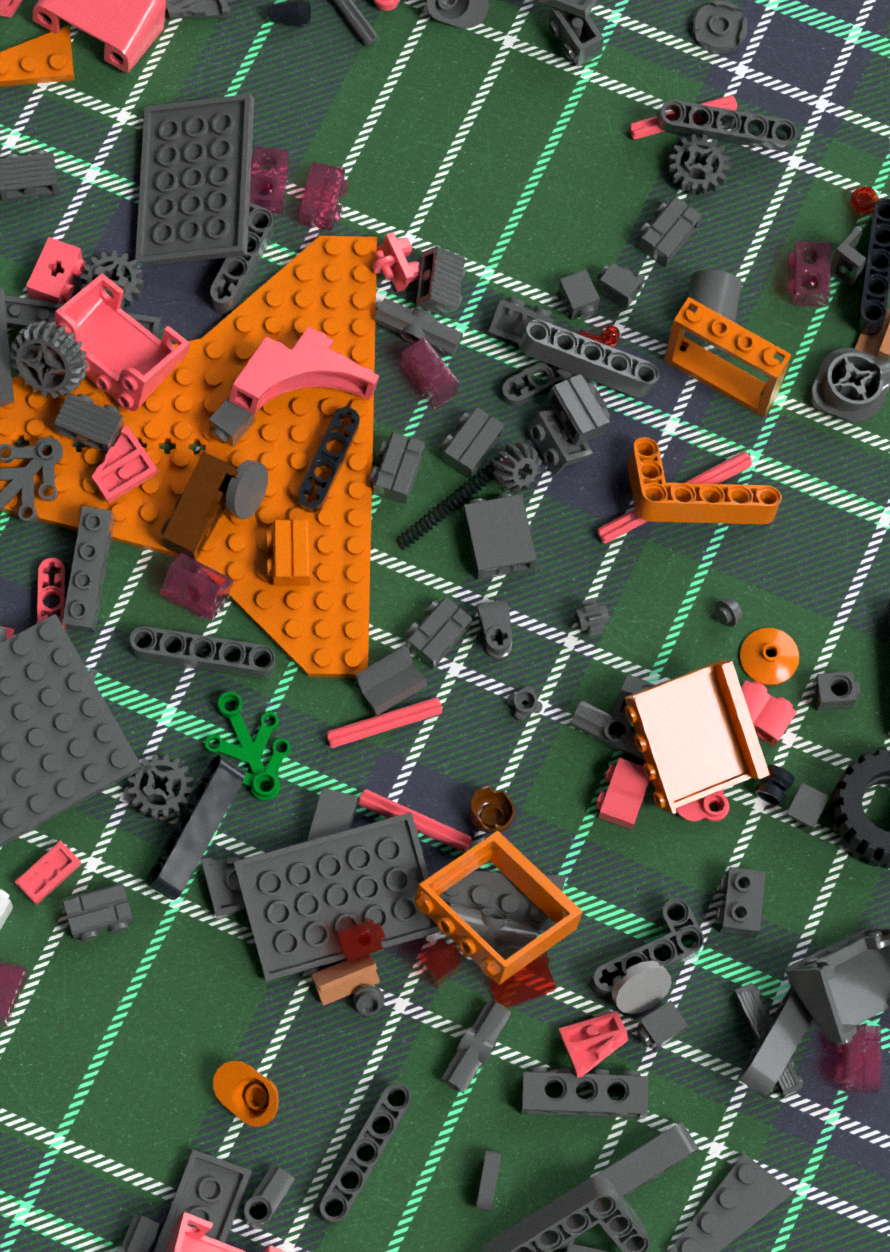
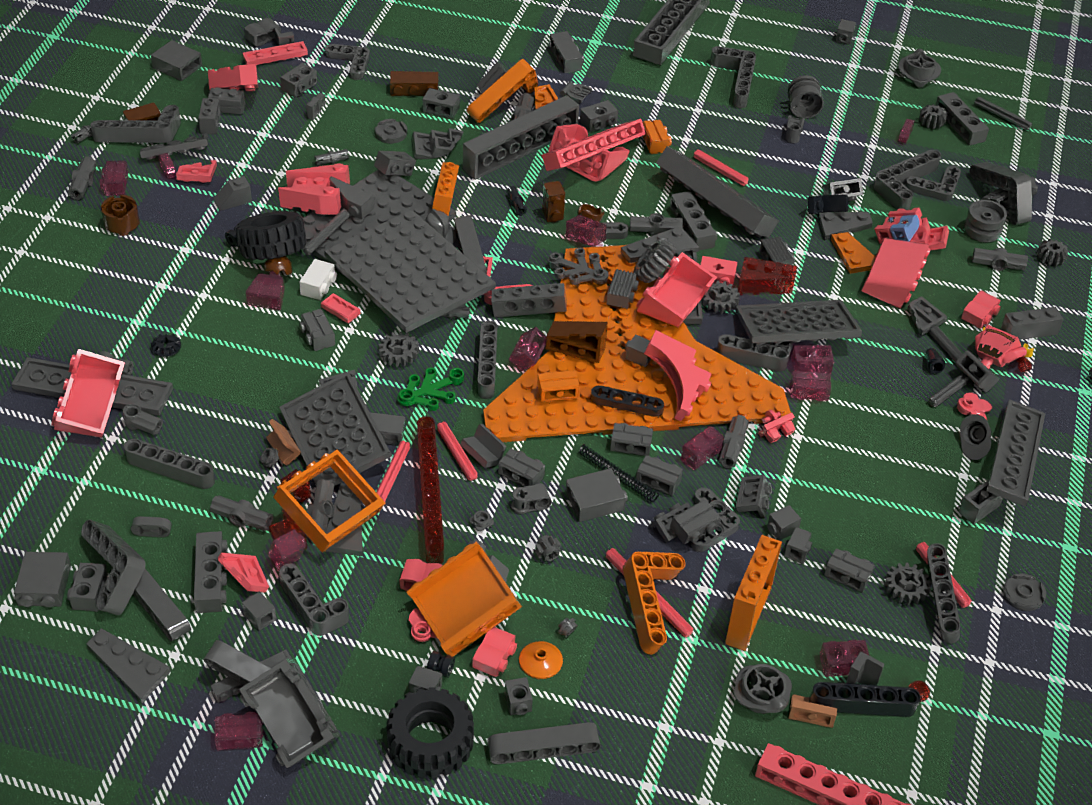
camera: 85 degrees right, 25 degrees down
(79, 205) = (766, 276): none -> clear red wedge
(101, 1174) = (171, 348): none -> black gear
(124, 467) = (597, 308): coral wing -> none
(195, 827) = (373, 362): black beam -> none
(246, 1093) = (206, 405): orange piece -> none
(247, 490) = (593, 356): dark grey tile -> none
(360, 939) = (305, 440): clear red brick -> none
(440, 281) = (769, 447): dark grey brick -> none
(475, 760) = (430, 490): none -> clear red beam
(491, 810) = (402, 504): reddish brown hair -> none
(516, 467) = (638, 495): dark grey gear -> none
(571, 977) = (286, 549): none -> clear pink brick
(598, 369) = (731, 533): dark grey beam -> none
(609, 337) = (752, 538): clear red arm -> none
(641, 987) = (283, 590): light grey tile -> none
(716, 291) = (801, 594): dark grey piece -> none
(741, 902) = (351, 650): dark grey brick -> none

